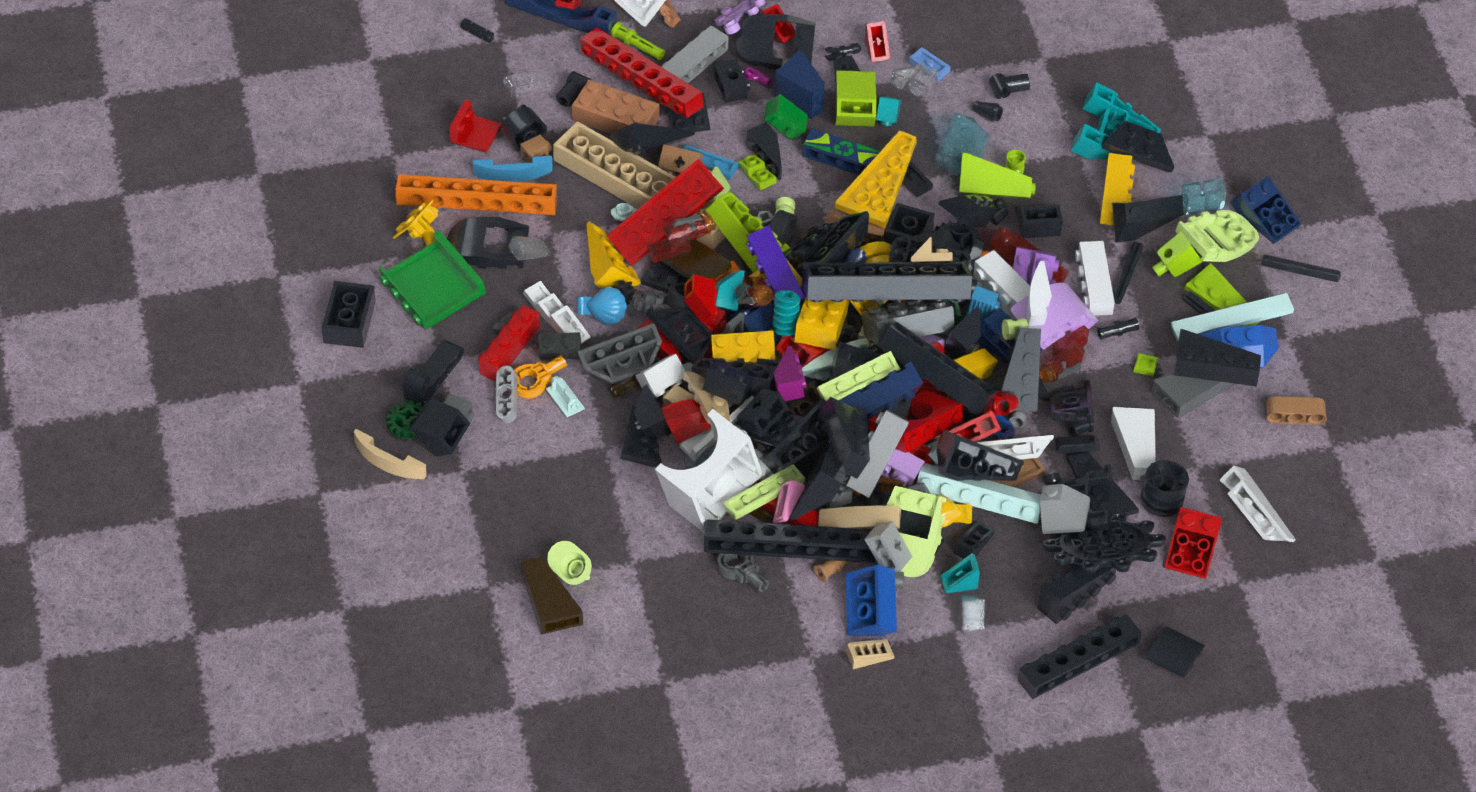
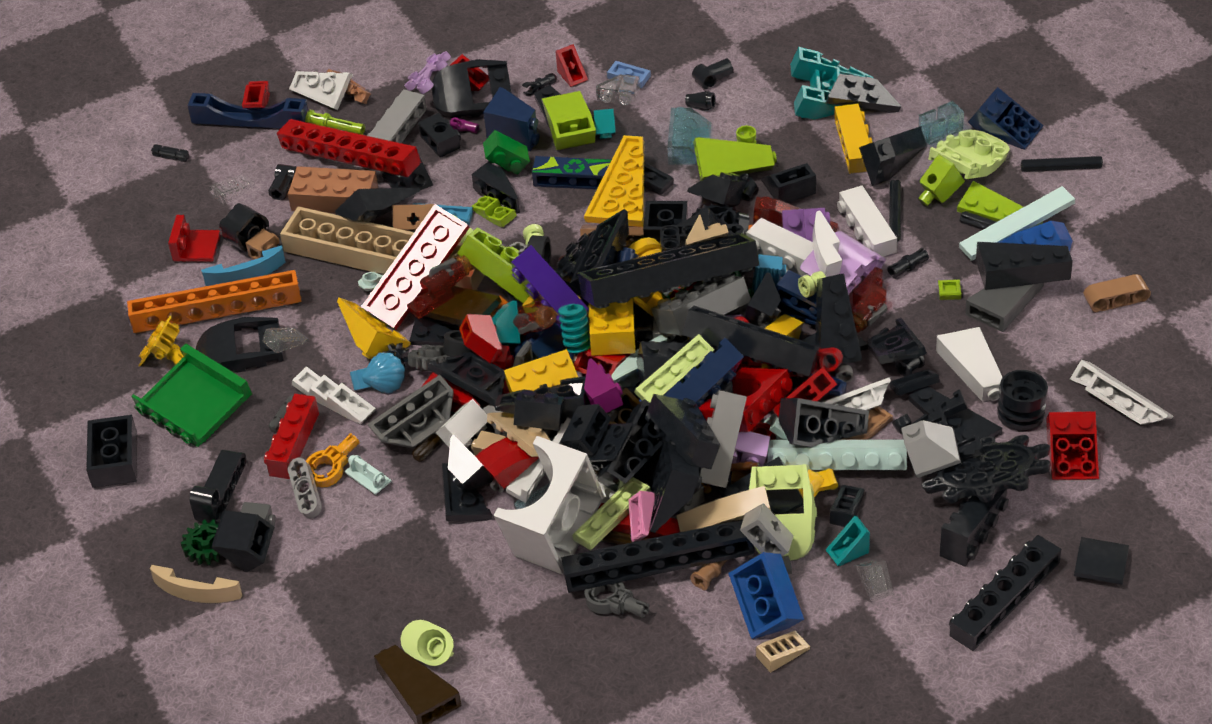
camera: 10 degrees left, 5 degrees down
(556, 344) = (347, 421): pearl dark grey brick -> none

